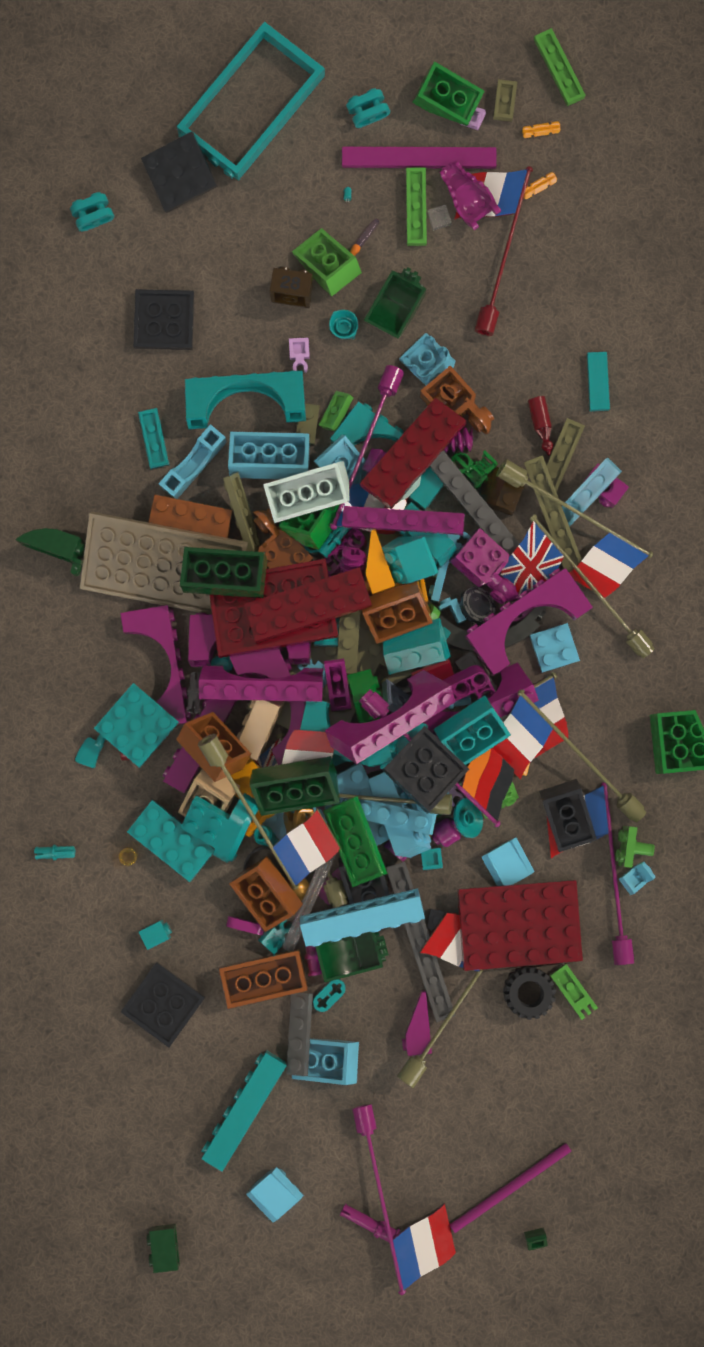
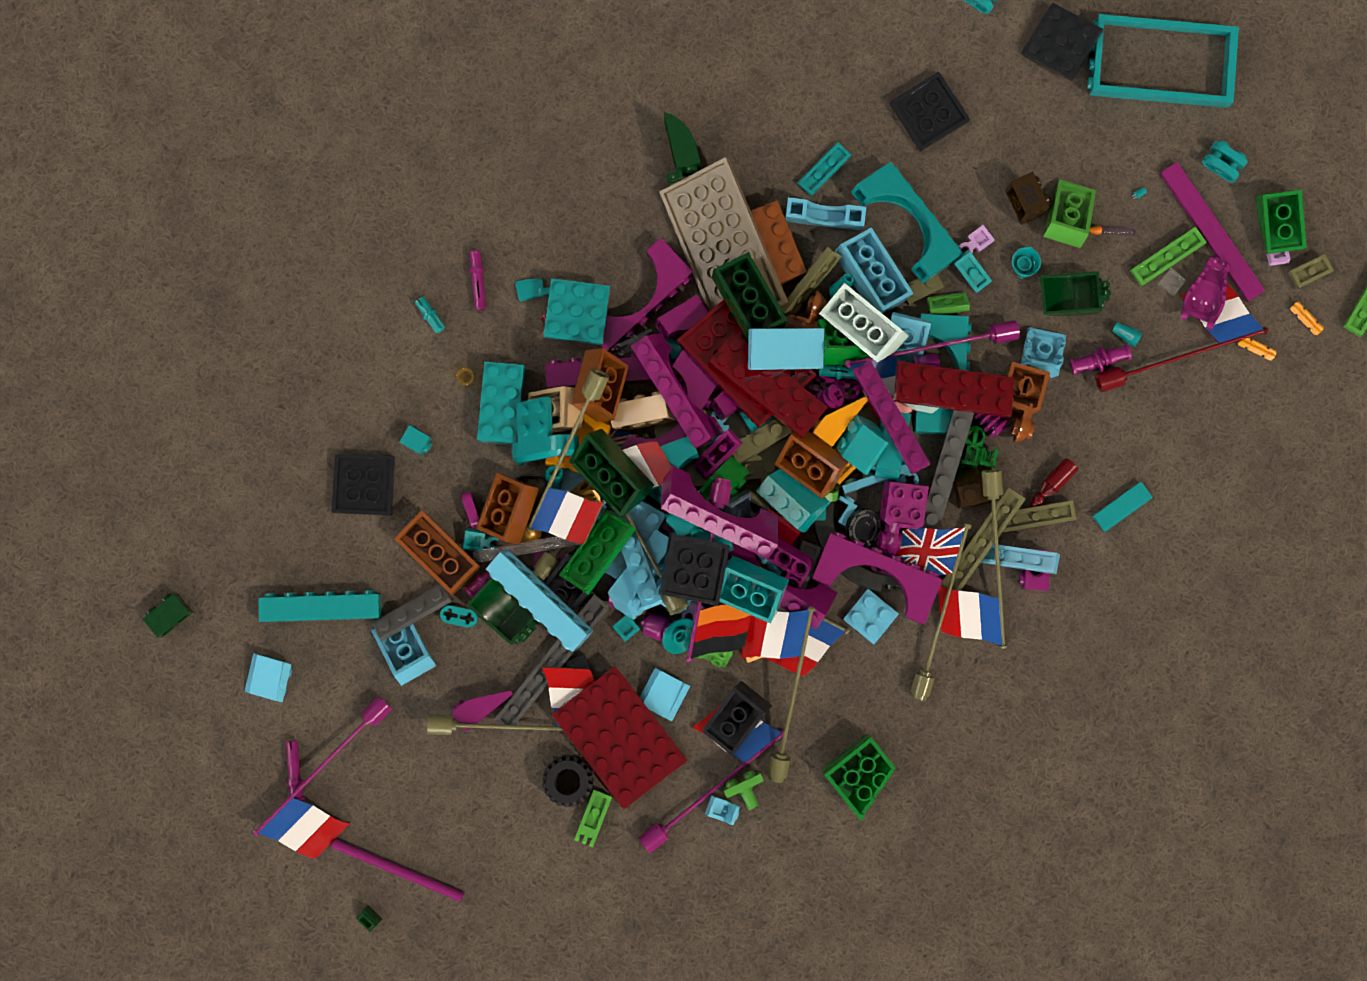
camera: 60 degrees right, 0 degrees up
(48, 790) = (477, 277): none -> magenta pin
(260, 491) = (846, 278): none -> teal cone
(287, 569) = (786, 348): none -> medium azure tile
(322, 373) = (972, 271): none -> teal plate
(458, 282) = (1127, 333): none -> teal cone
(464, 317) = (1100, 358): none -> magenta piece

